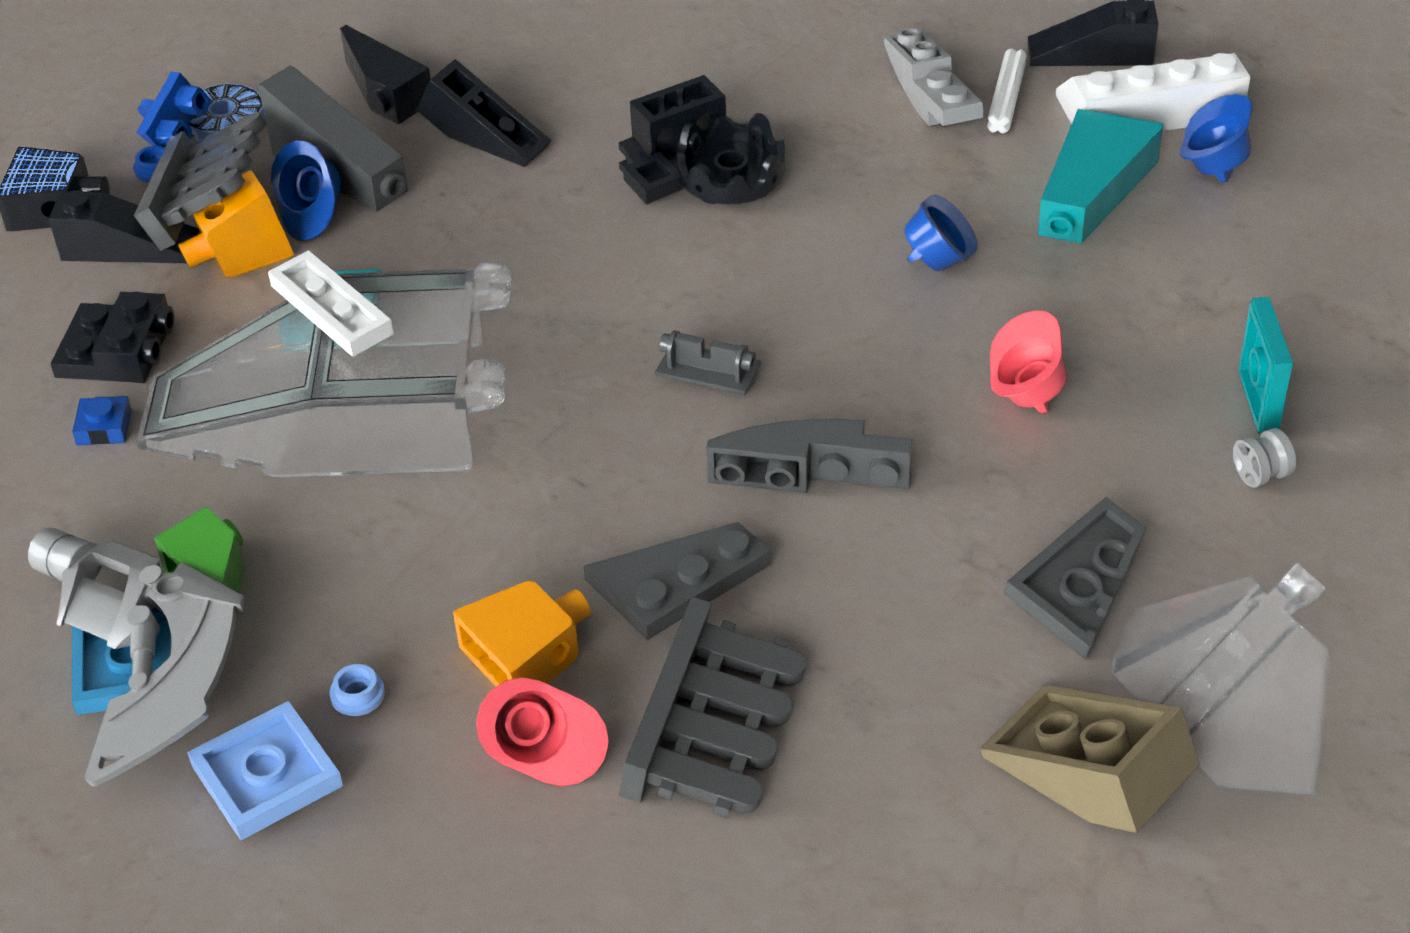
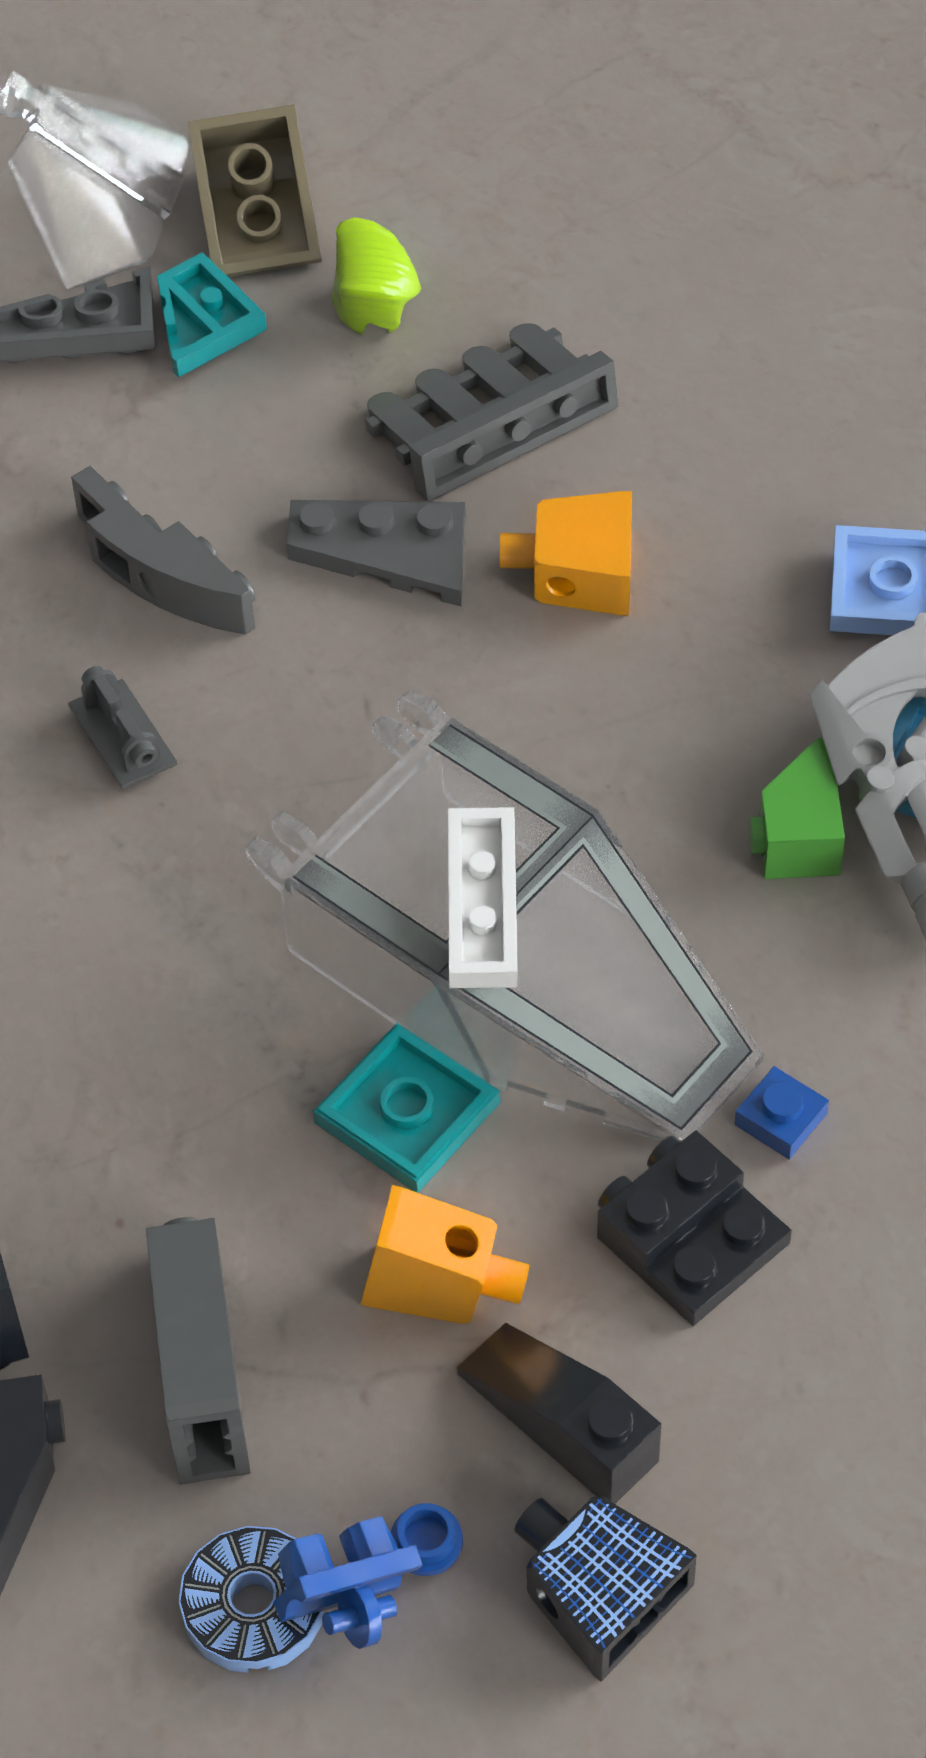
camera: 140 degrees left, 10 degrees up
(196, 177) = (404, 1393): dark grey fence -> none
(305, 189) = (292, 1287): blue piece -> none
(356, 690) = (758, 608): light blue plate -> none
(542, 731) = (646, 468): coral piece -> none
(900, 725) = (371, 276): none -> lime hair
(1005, 639) = (204, 313): none -> teal wing

